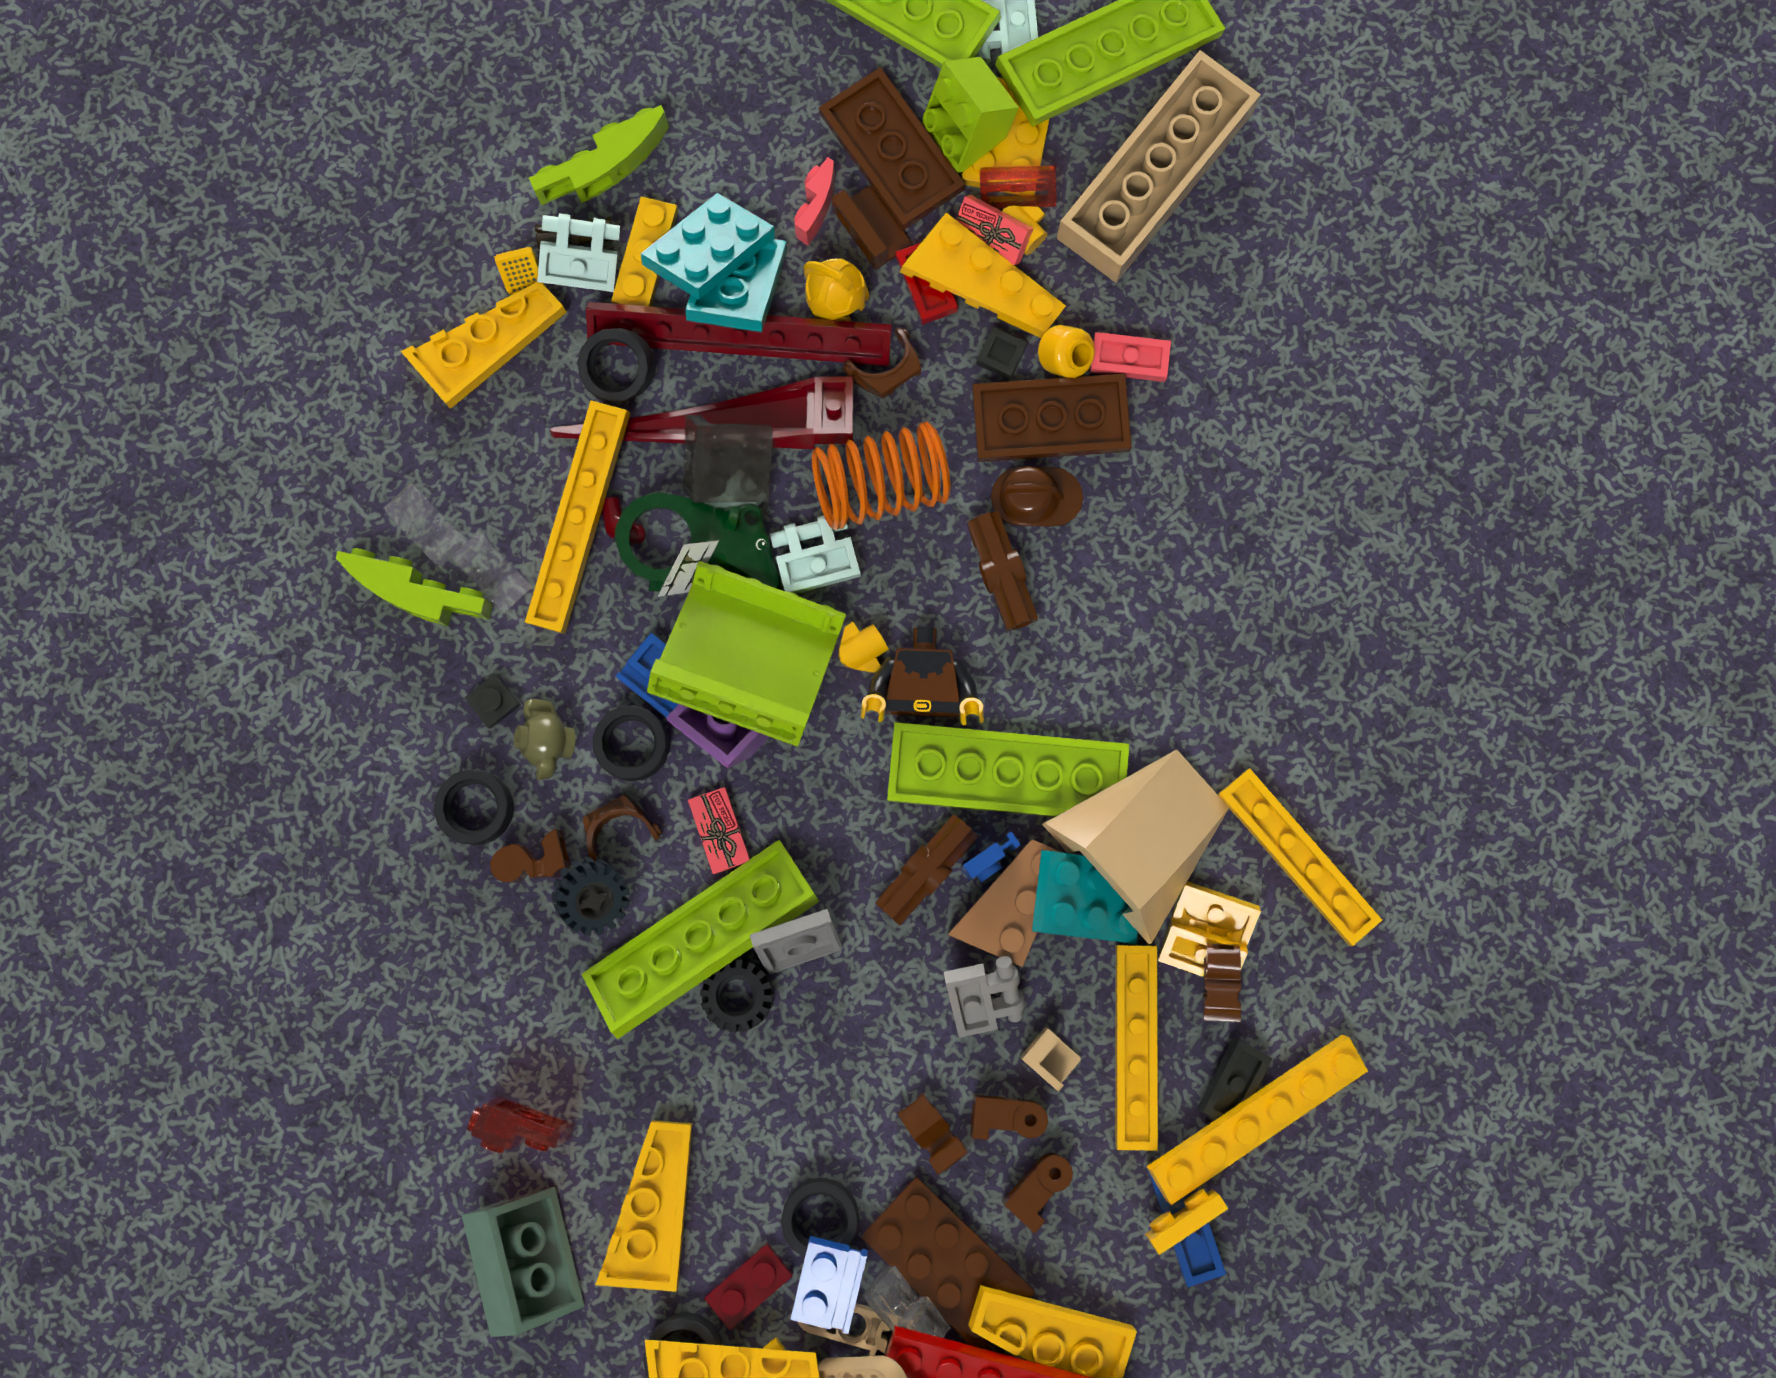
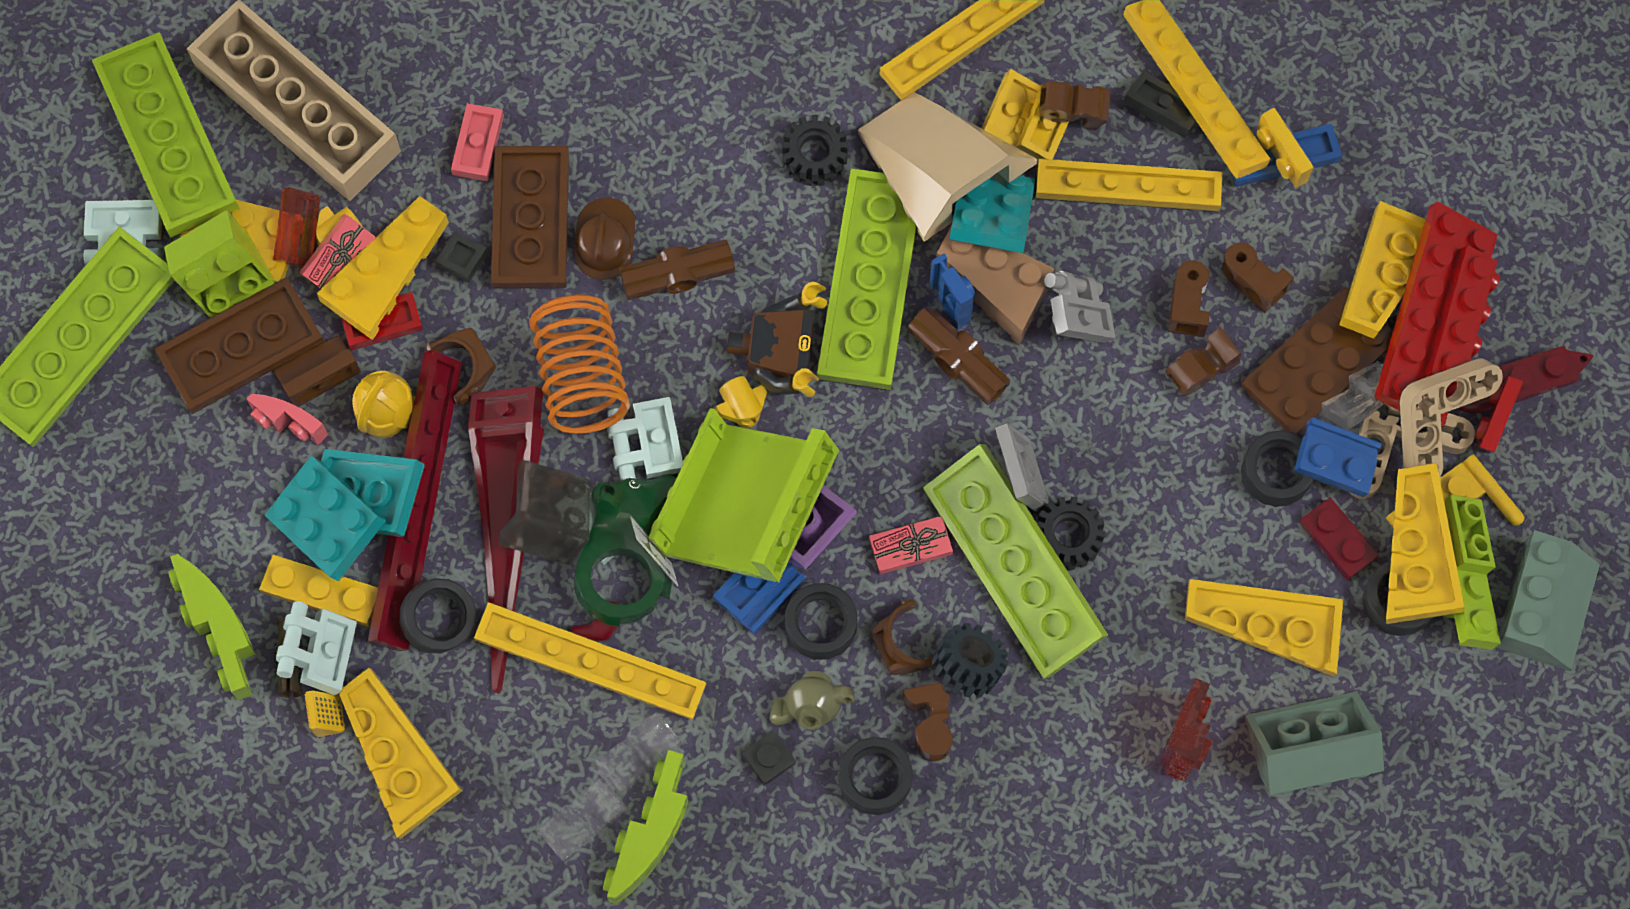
camera: 90 degrees left, 10 degrees down
(1050, 1058) = (1136, 260): tan panel -> none
(1066, 351) = (468, 194): yellow head -> none
(1149, 681) = (814, 130): none -> black tyre

